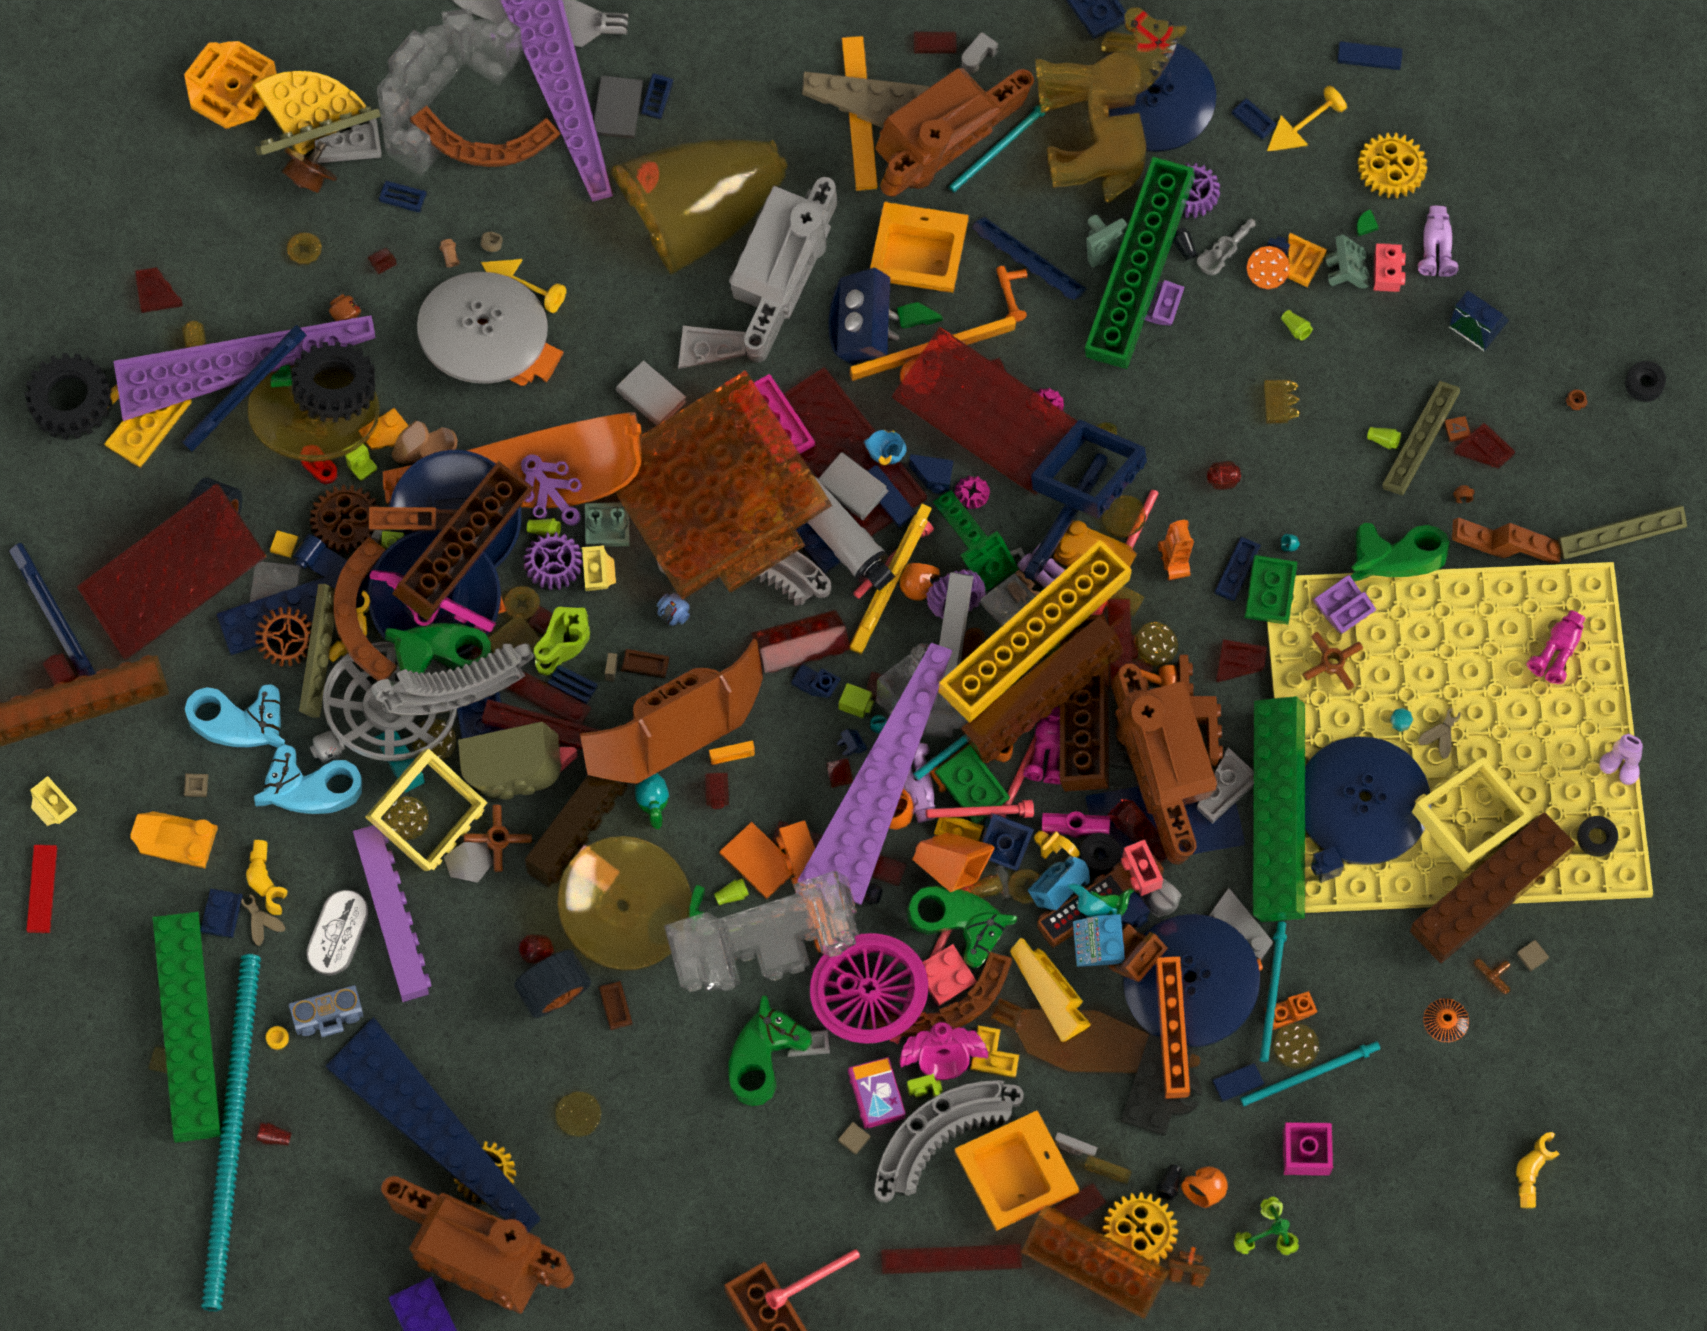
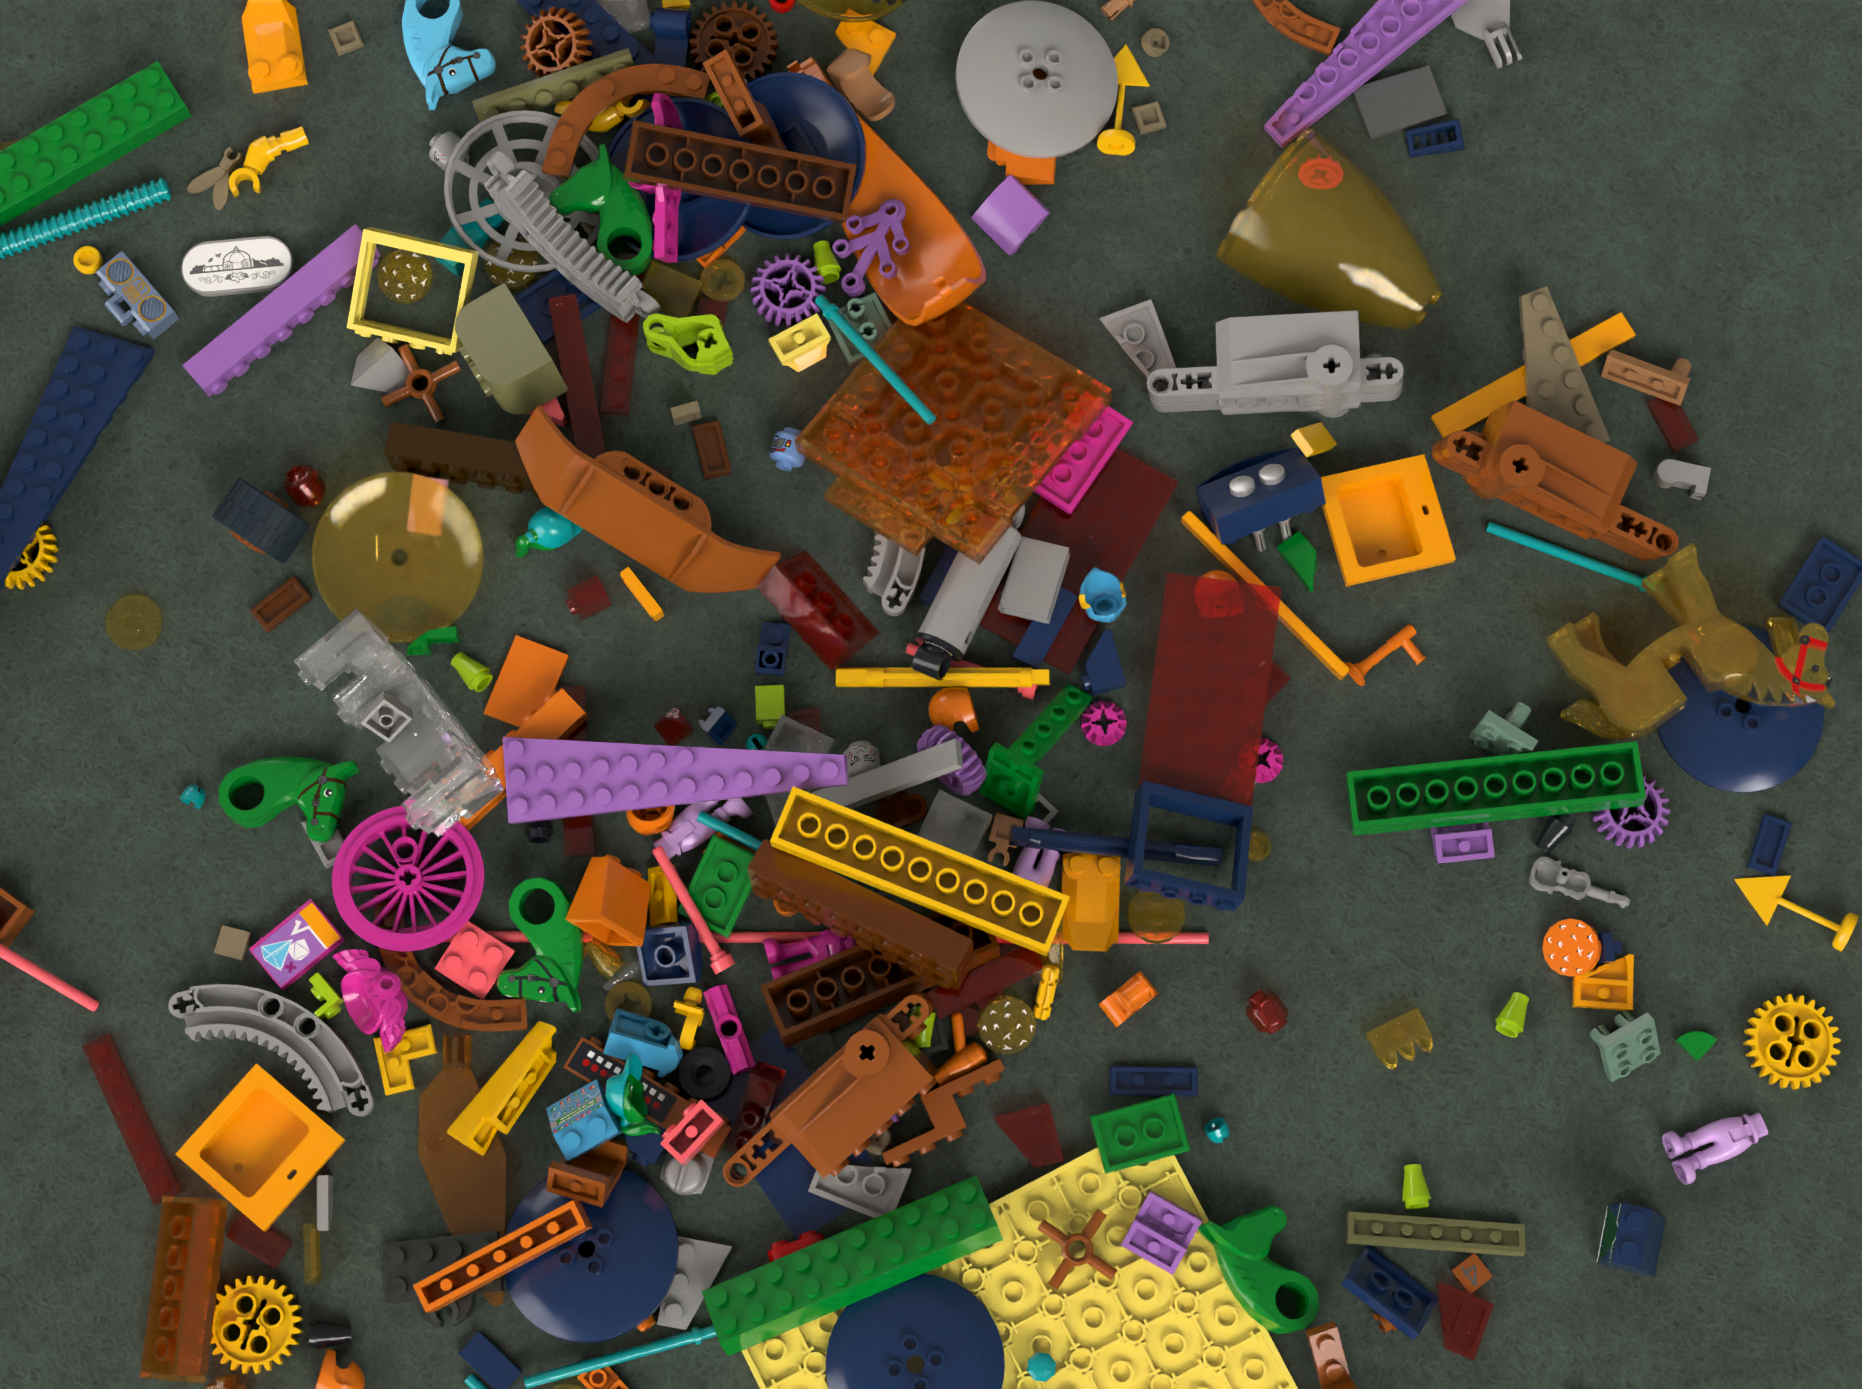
camera: 65 degrees right, 10 degrees up
(221, 913) = (207, 134): dark blue plate -> none
(307, 794) = (380, 143): medium azure animal -> none
(360, 463) = (809, 28): lime bracket -> none
(545, 271) = (1149, 117): none -> dark tan tile
(556, 675) = (637, 382): dark blue tile -> none
(573, 390) = (1010, 214): none -> medium lavender slope
(587, 534) = (831, 311): none -> teal bar
(651, 393) = (1049, 303): light grey piece -> none
(729, 1121) = (191, 794): none -> teal hinge
(745, 952) = (386, 716): none -> light grey piece
(838, 266) = (1313, 439): none -> yellow tile
(899, 41) = (1648, 377): none -> medium nougat piece
(1024, 255) = (1440, 656): dark blue plate -> none
(1145, 606) = (1046, 991): none -> yellow axle
(1246, 854) = (783, 1248): none -> red plate
(1327, 864) = (804, 1354): dark blue brick -> none
(1388, 267) = (1647, 1095): coral brick -> none
(1448, 481) = (1390, 1291): none -> dark blue plate

